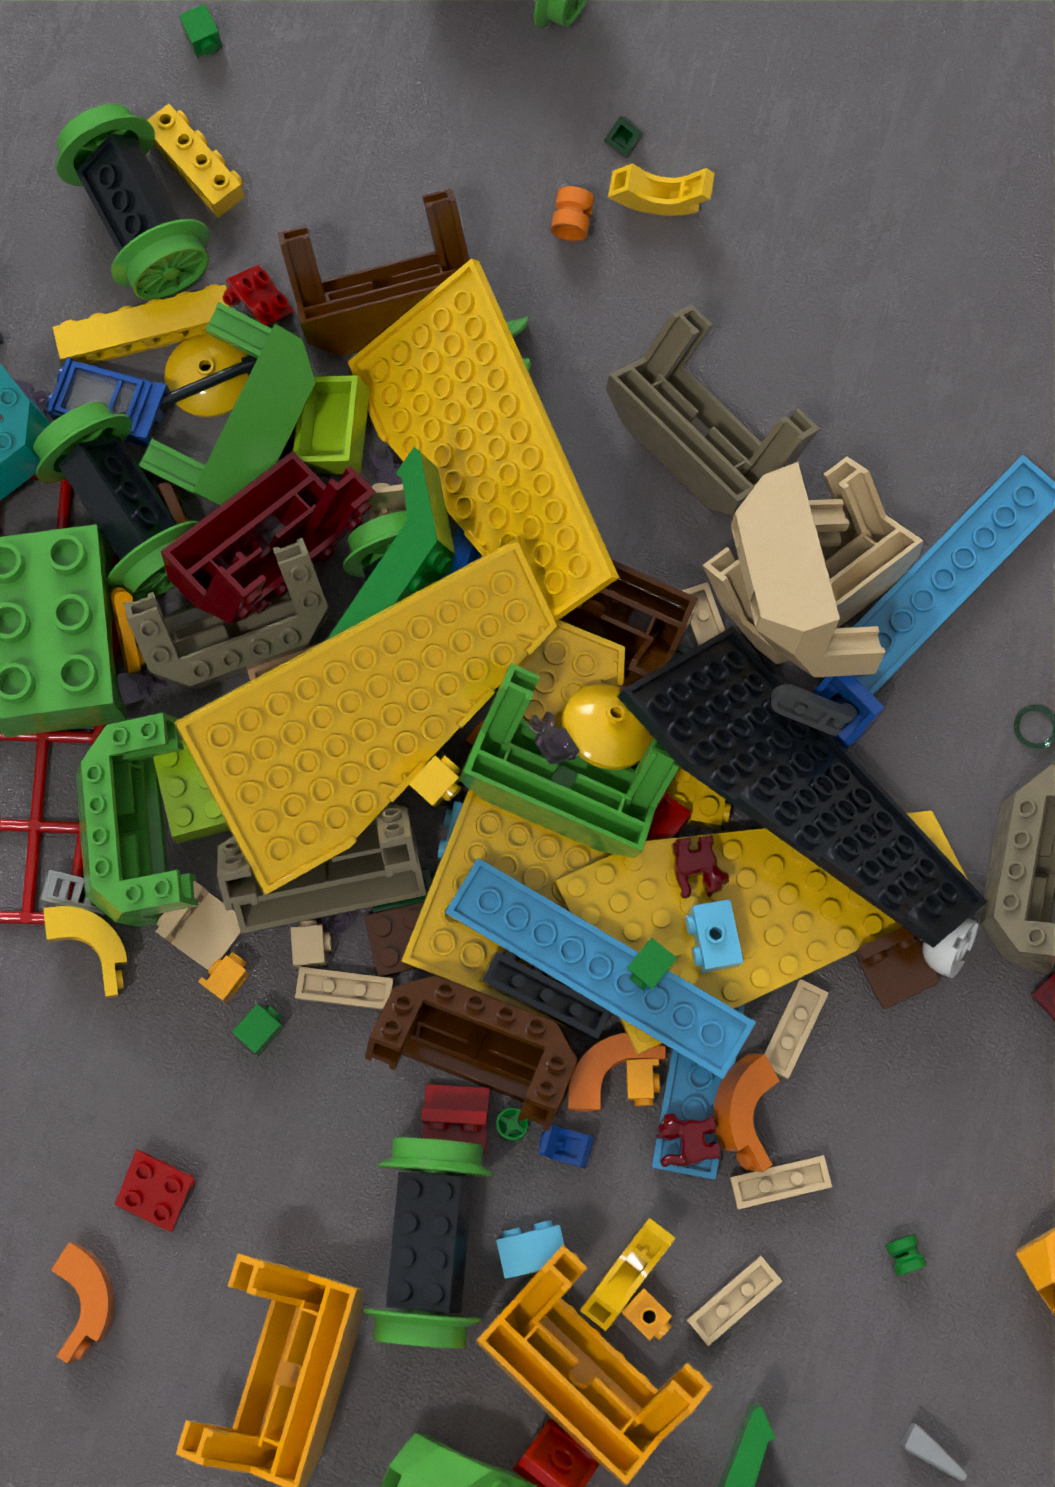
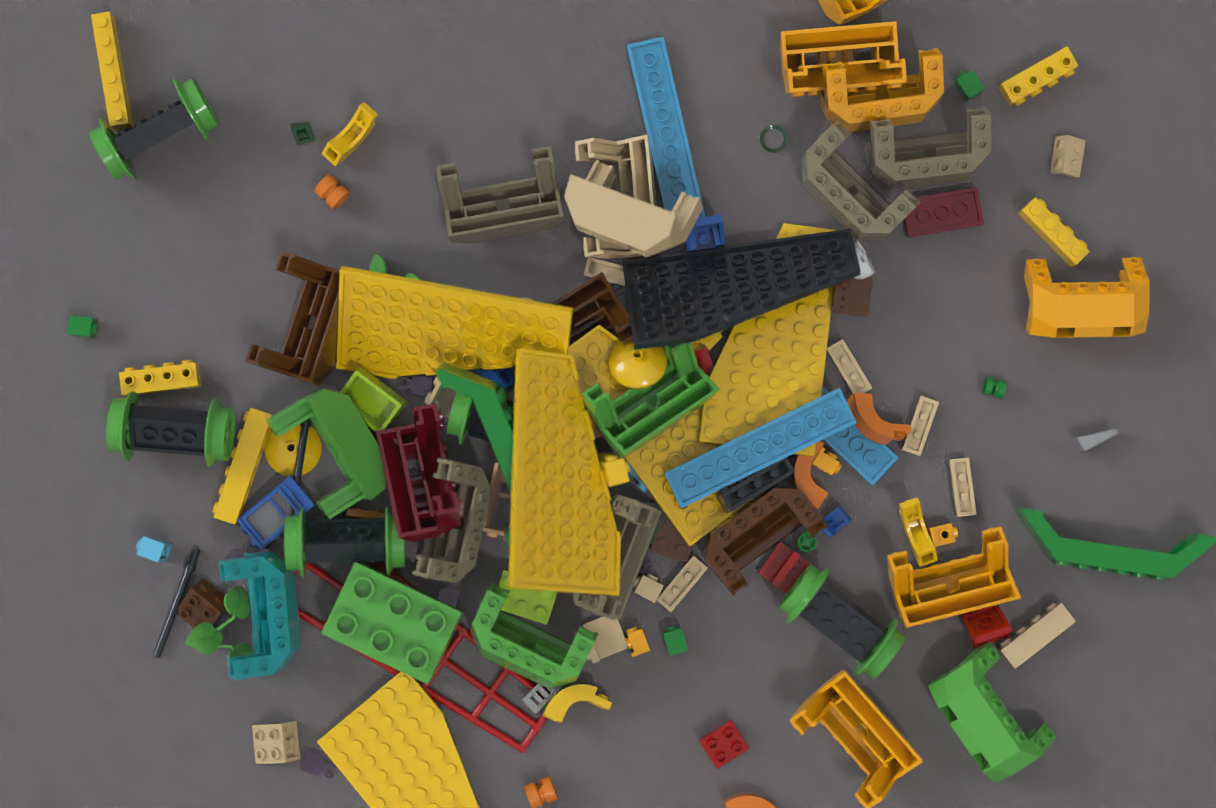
camera: 60 degrees left, 10 degrees up
(130, 652) = (404, 575): light orange plate -> none
(258, 295) = (269, 393): red hinge -> none
(528, 1251) = (874, 572): medium azure brick -> none
(552, 741) = (630, 396): plate -> none
(651, 965) = (778, 421): green brick -> none
(693, 1143) = (872, 456): dark red animal -> none
(697, 862) = (737, 364): dark red animal -> none
(714, 936) = (781, 379): medium azure brick -> none
(812, 709) = (696, 250): dark grey plate -> none

